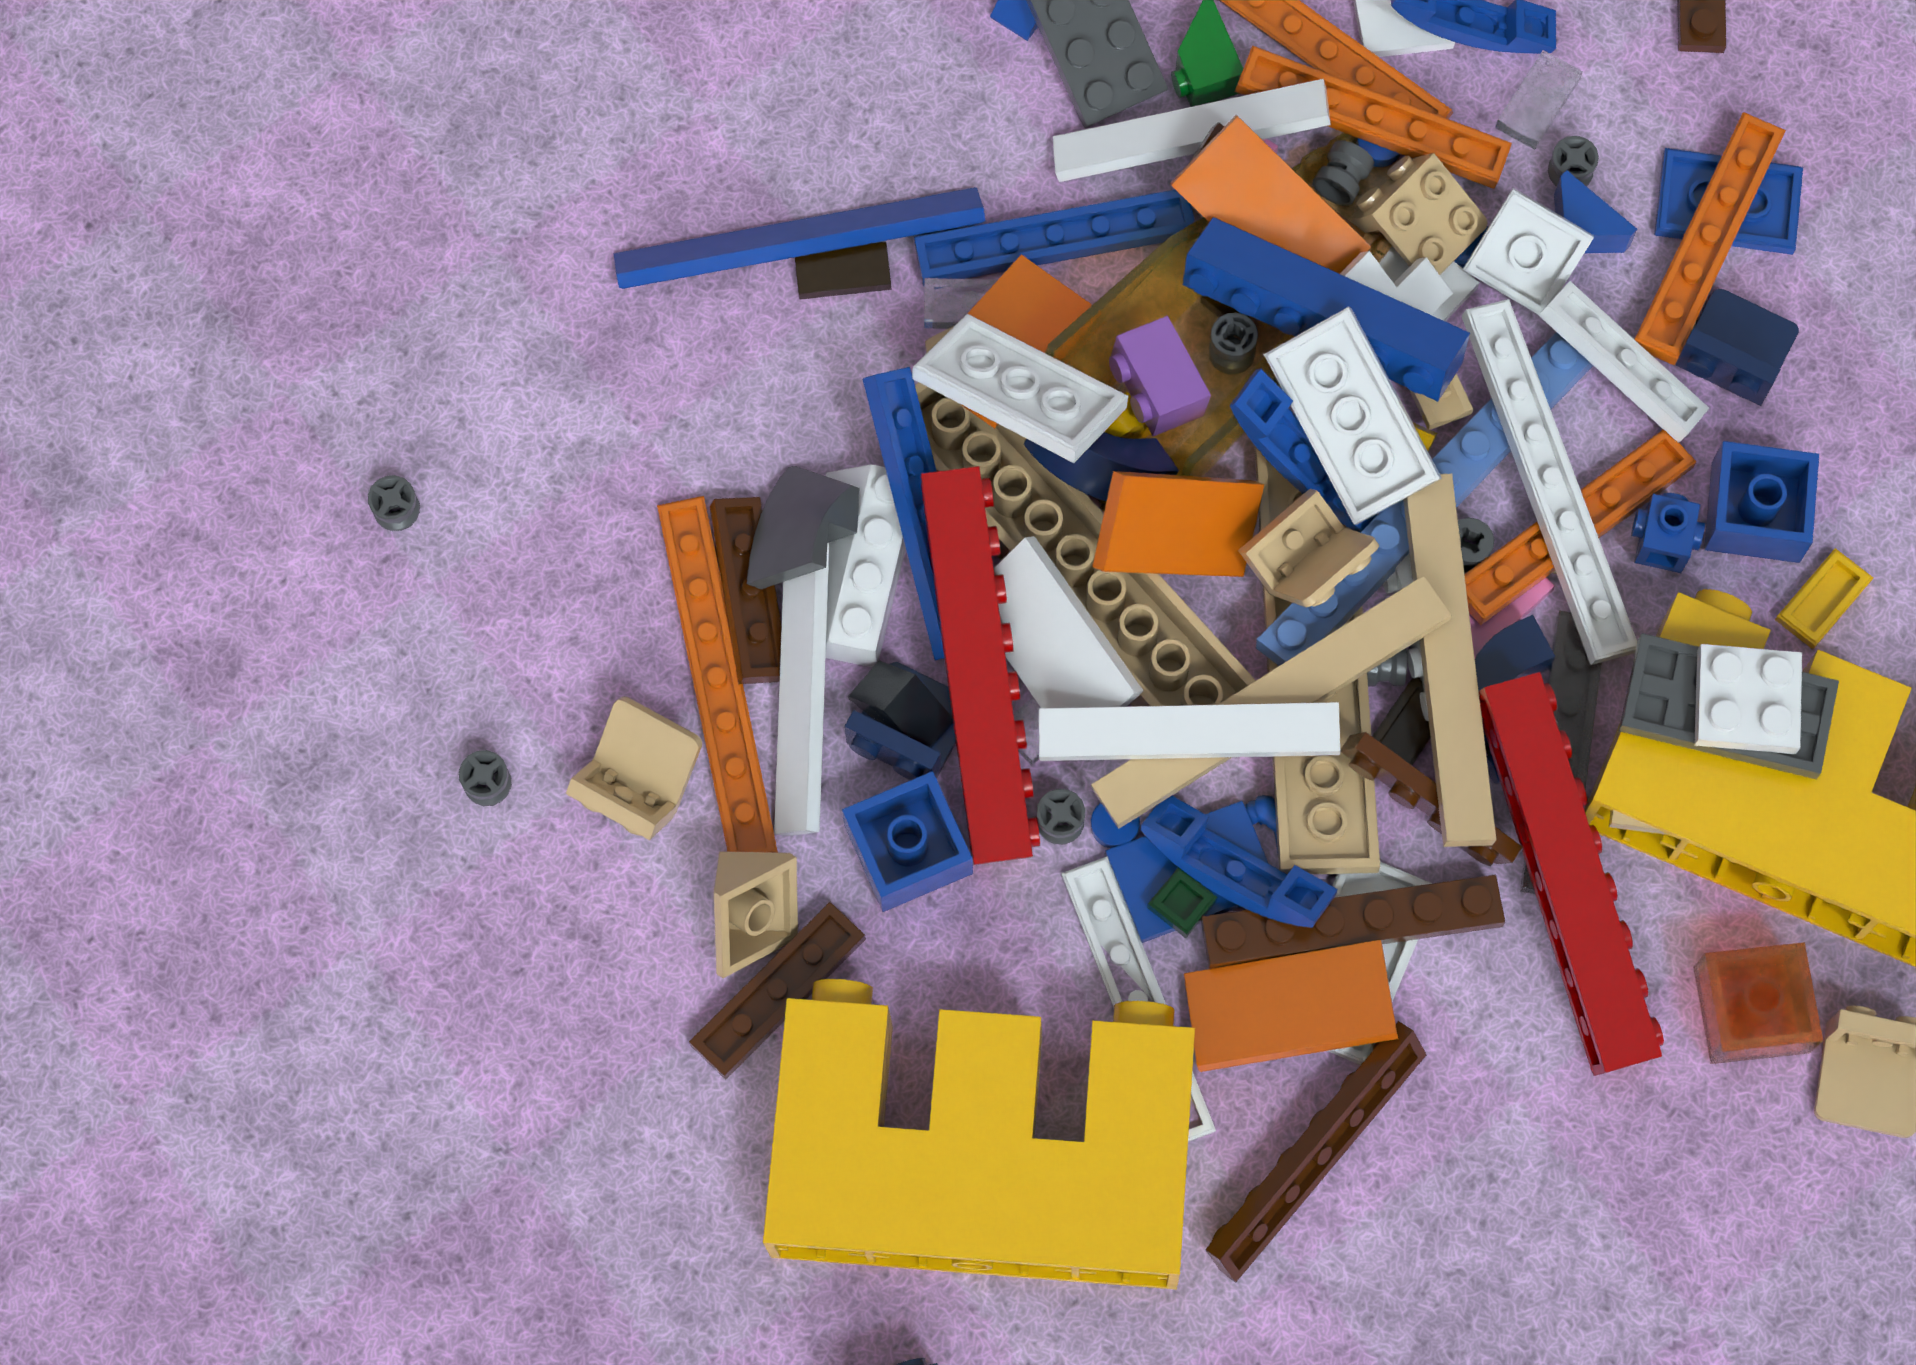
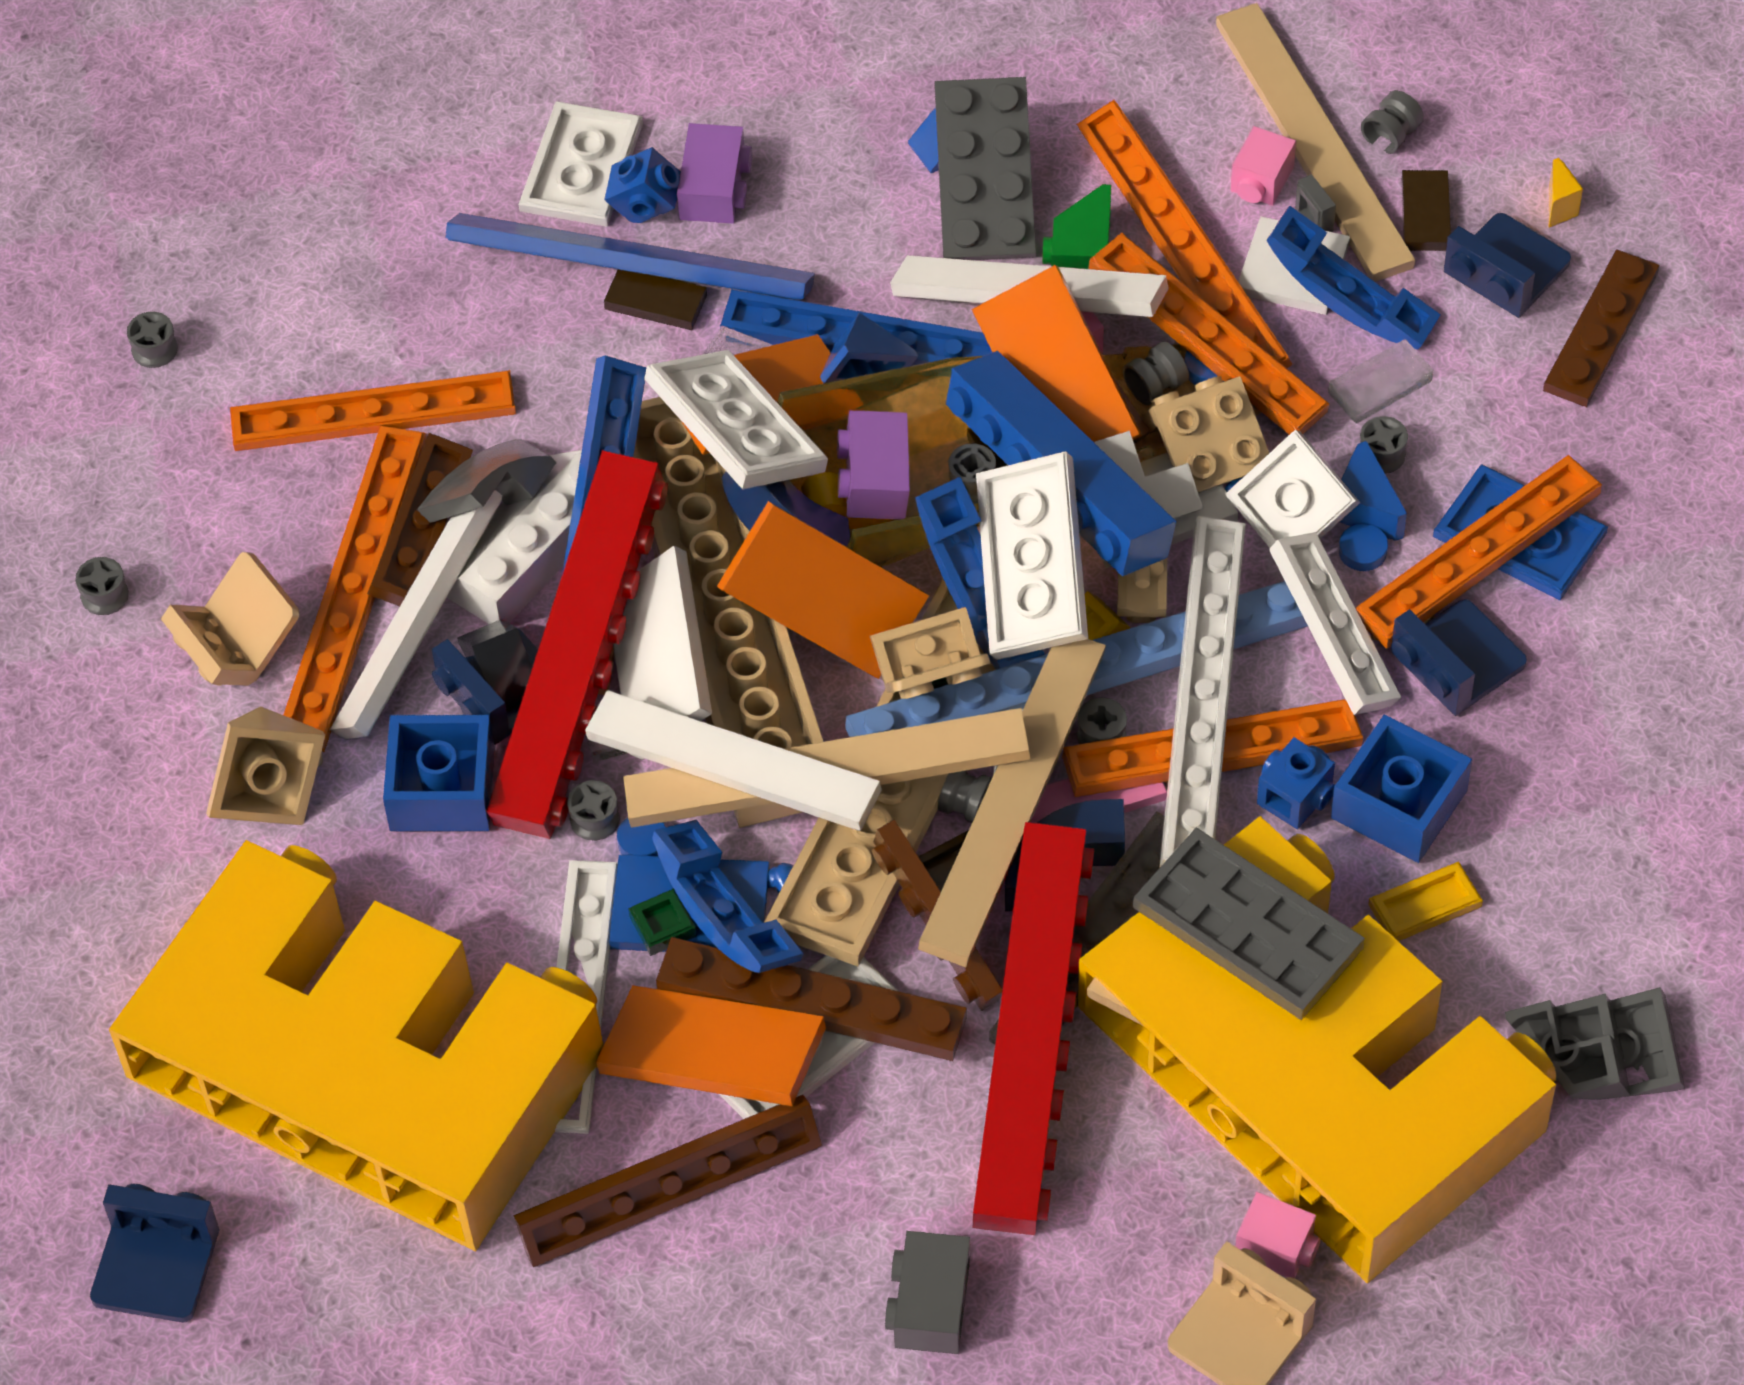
camera: 25 degrees right, 15 degrees down
(639, 492) = (365, 410): none -> orange tile
(699, 157) = (576, 162): none -> white tile
(762, 1002) = (323, 830): reddish brown plate -> none
(779, 162) = (643, 186): none -> blue brick
(833, 123) = (712, 173): none -> medium lavender brick
(1075, 259) = (866, 350): none -> blue slope
(1597, 1158) = (930, 1292): none -> dark grey brick
(1602, 271) = (1363, 547): none -> blue tile
(1748, 699) = (1264, 917): white plate -> none
(1757, 1003) = (1156, 1215): clear orange brick -> none
(1862, 975) = (1279, 1235): none -> bright pink brick

